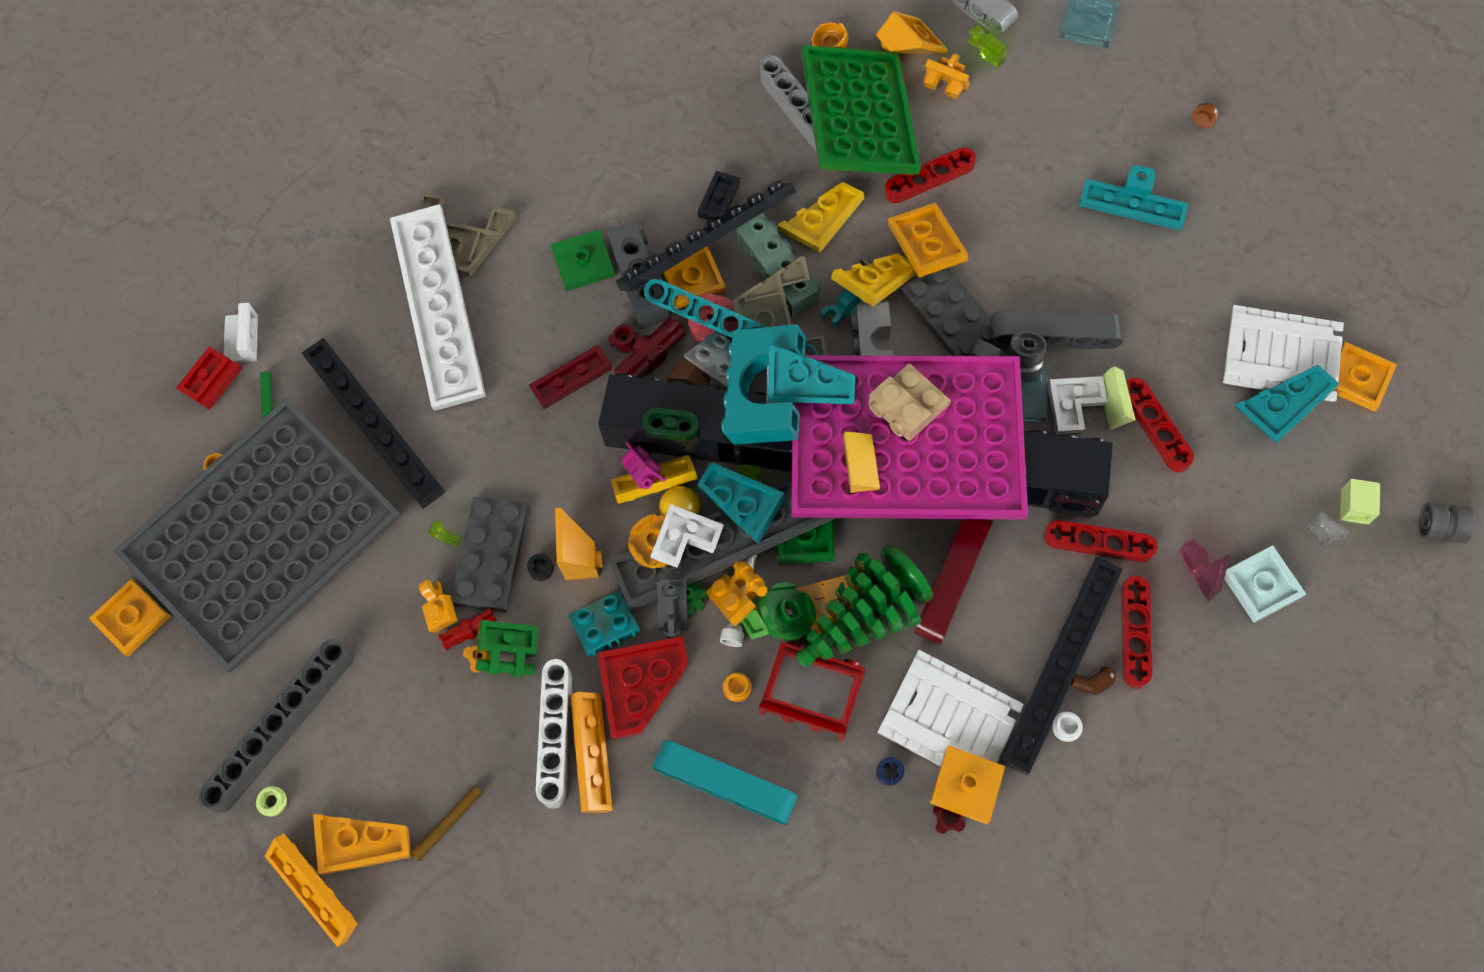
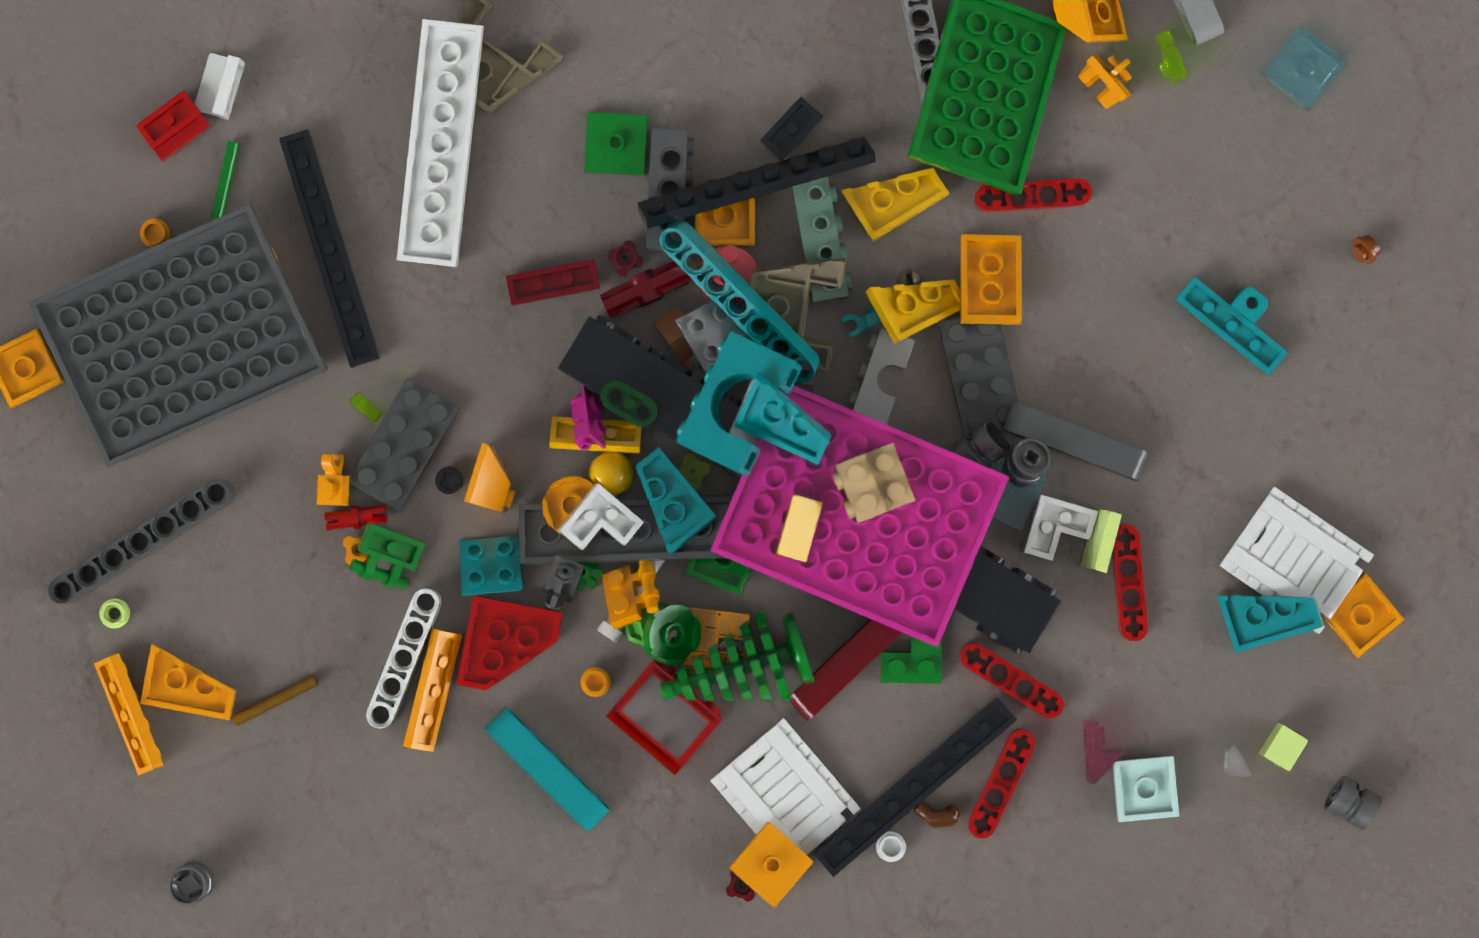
camera: 15 degrees right, 20 degrees up
(880, 771) = (715, 822): dark blue bush -> none
(1014, 560) = (919, 666): none -> green plate

